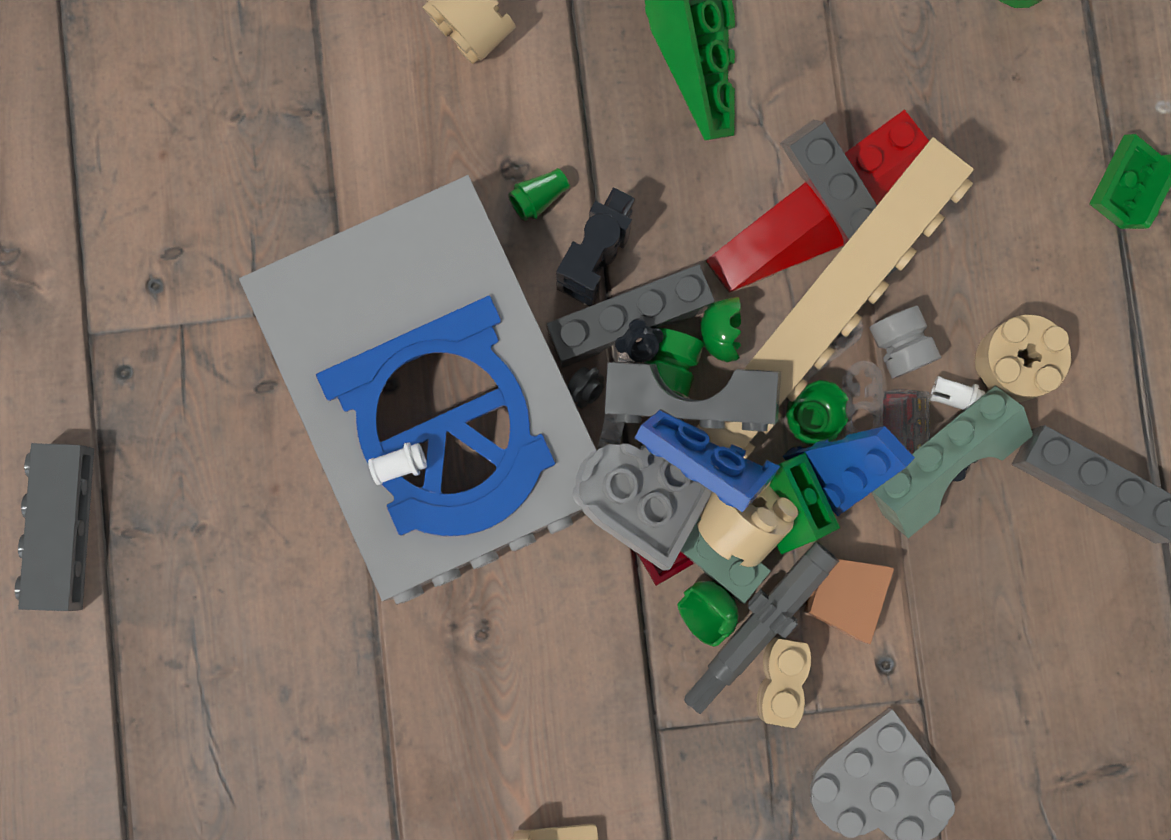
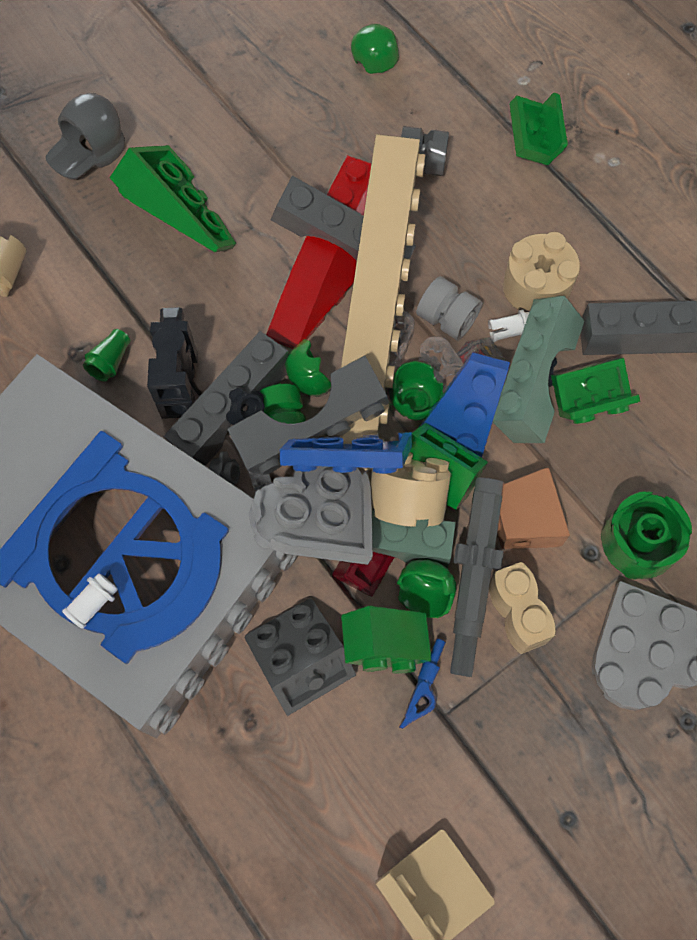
camera: 30 degrees left, 15 degrees down
(558, 601) = (299, 656): none -> dark grey bracket
(642, 640) = (385, 639): none -> green brick
(660, 688) = (423, 687): none -> blue hand
(953, 706) = (652, 515): none -> green brick
(992, 142) = (433, 145): none -> dark grey wheel
(993, 513) = (593, 390): none -> green bracket

